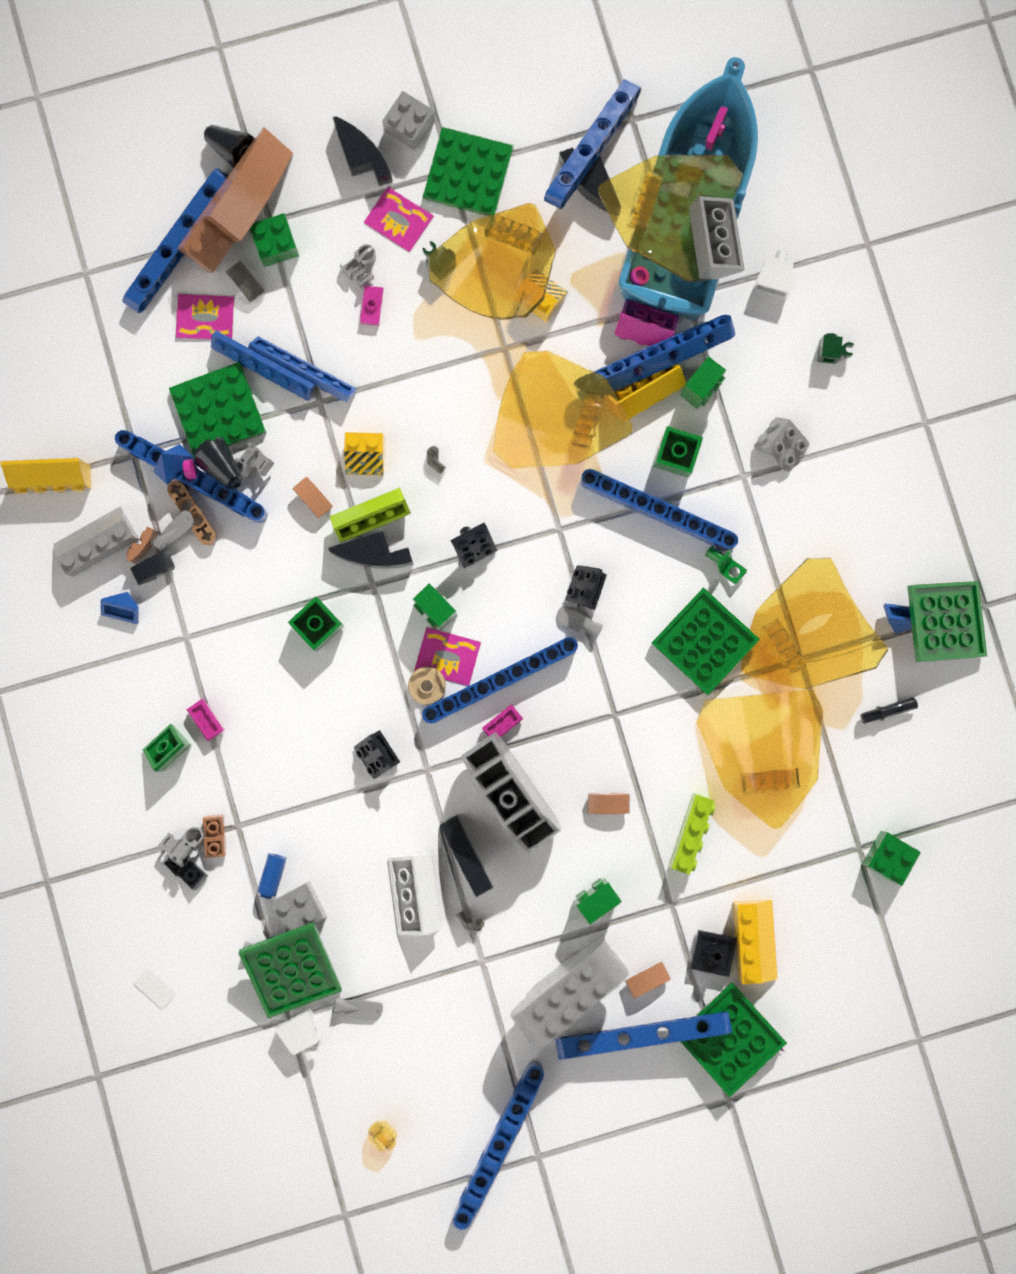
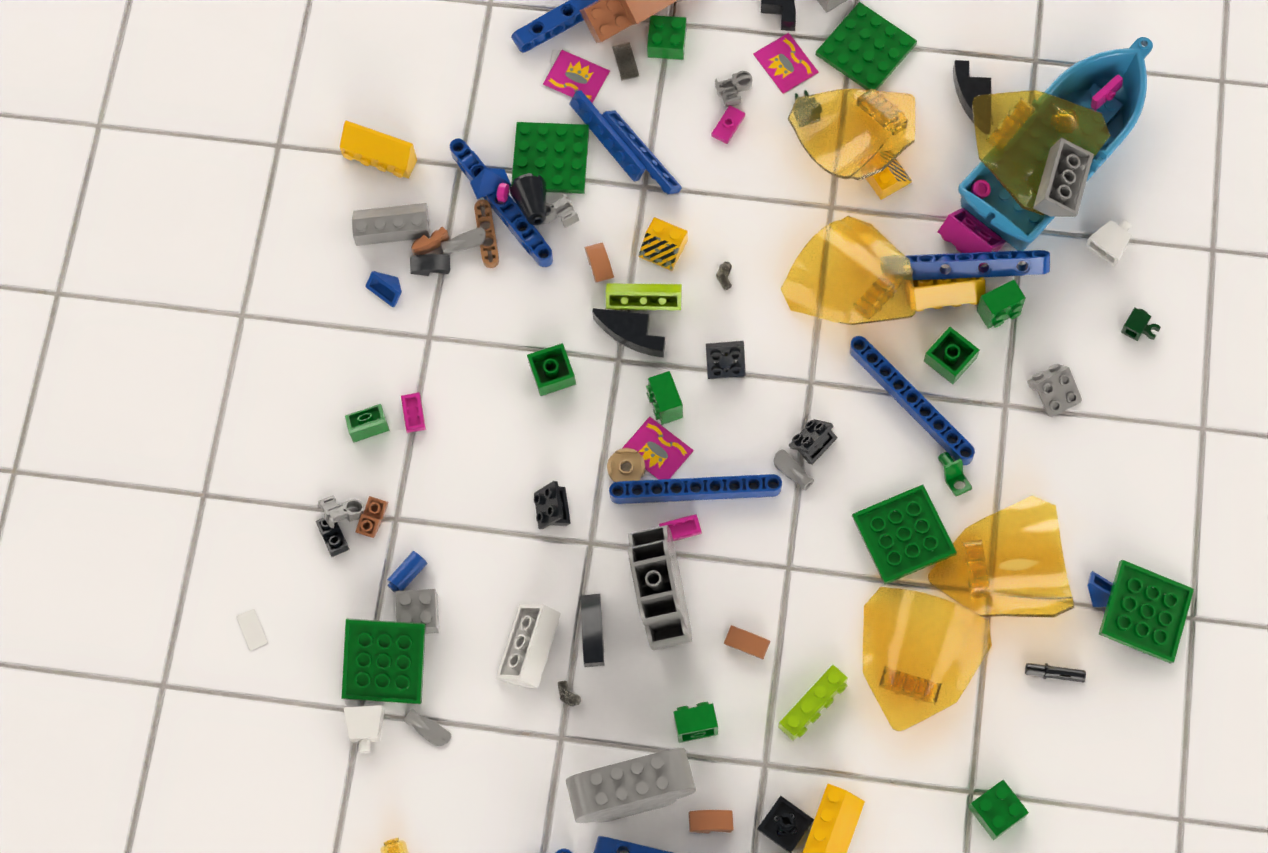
camera: 35 degrees right, 15 degrees down
(592, 144) = (987, 64): blue beam -> none

